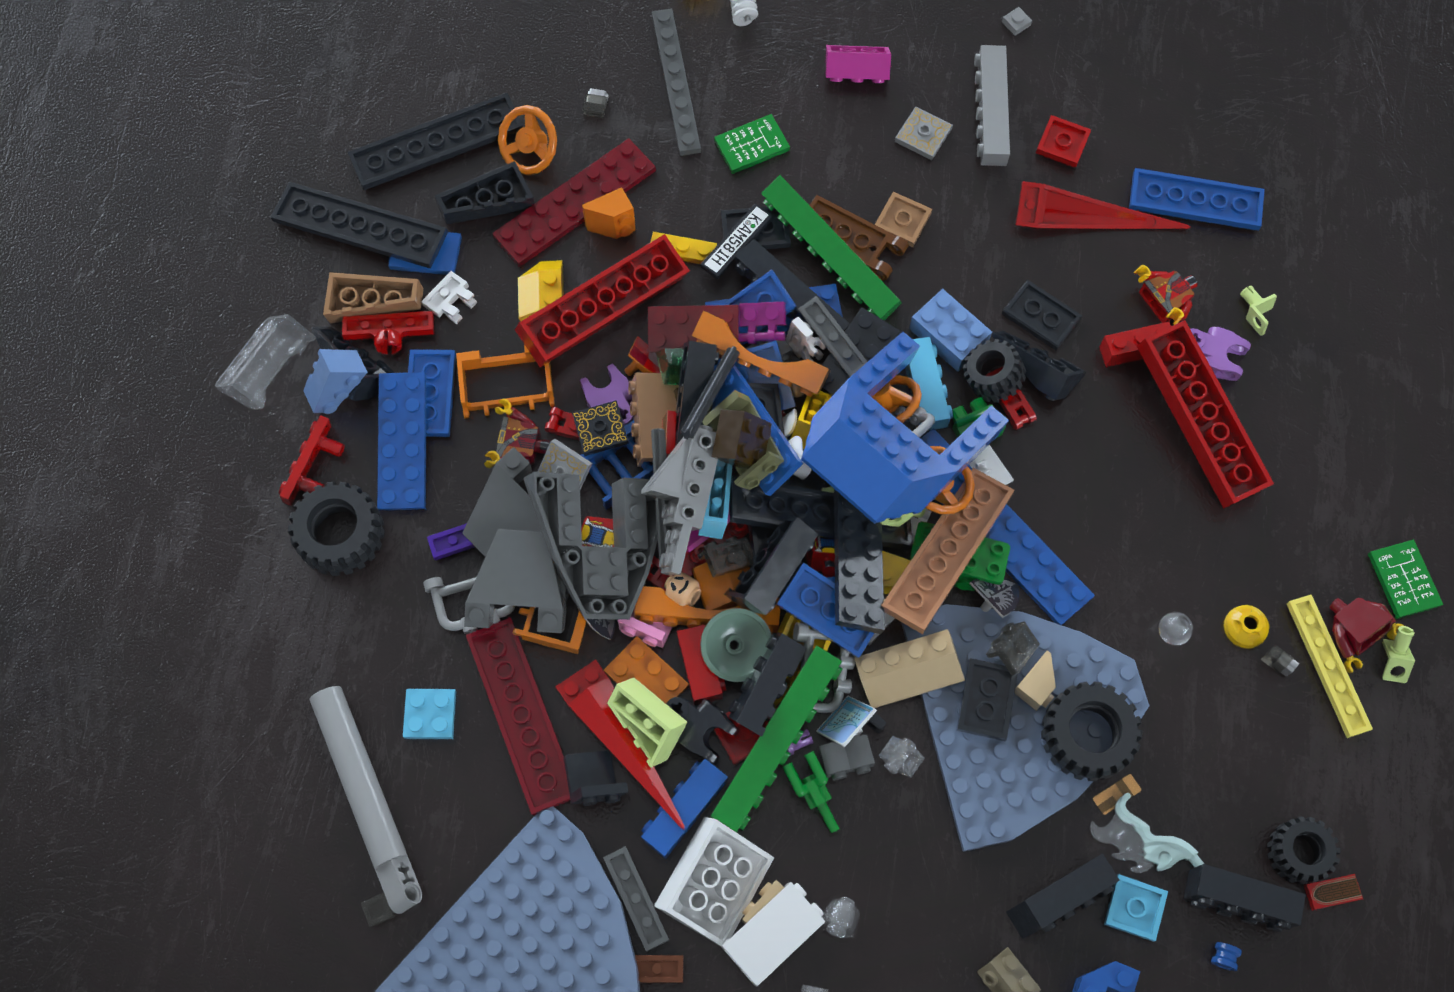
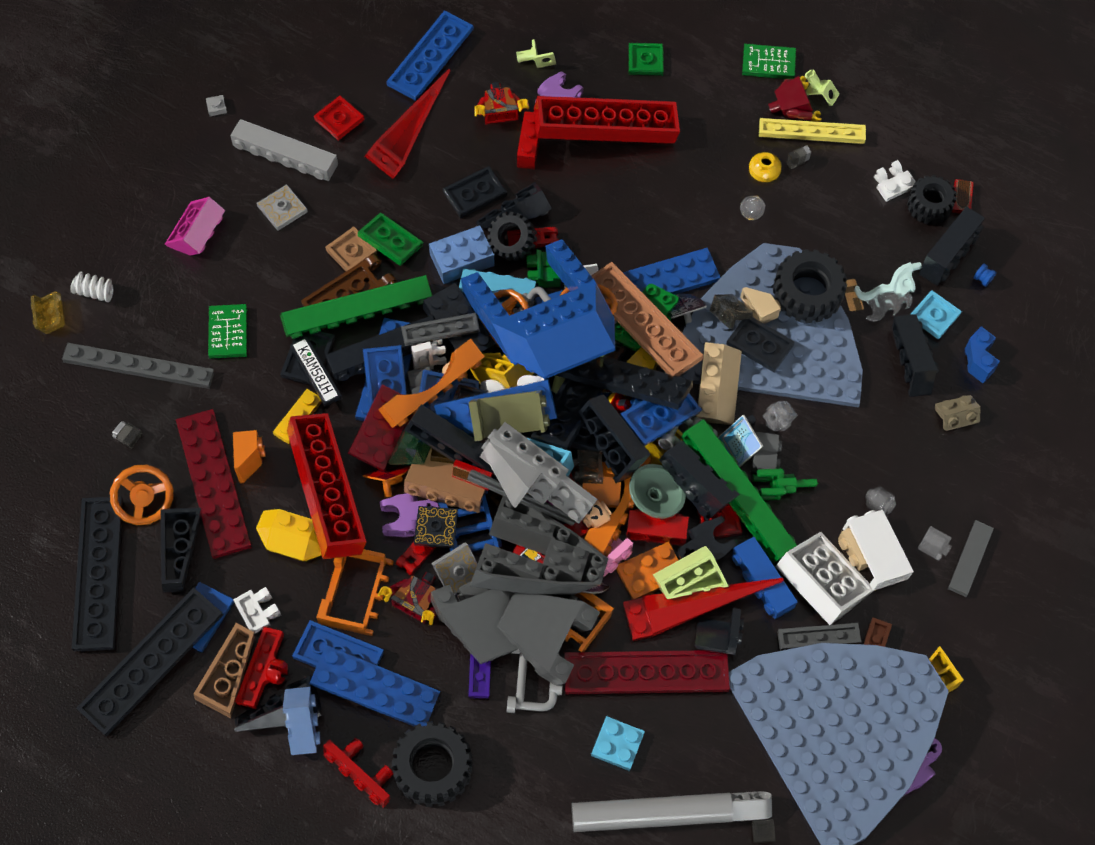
camera: 70 degrees left, 5 degrees down
(262, 359) = (239, 783): clear windscreen -> none
(709, 393) = (462, 421): black axle -> none
(740, 438) = (514, 410): dark brown brick -> none
(762, 314) = (397, 370): magenta plate -> none
(935, 251) = (390, 239): none -> green tile
(1306, 800) = (896, 186): none -> white plate
(1326, 433) = (646, 59): none -> green tile

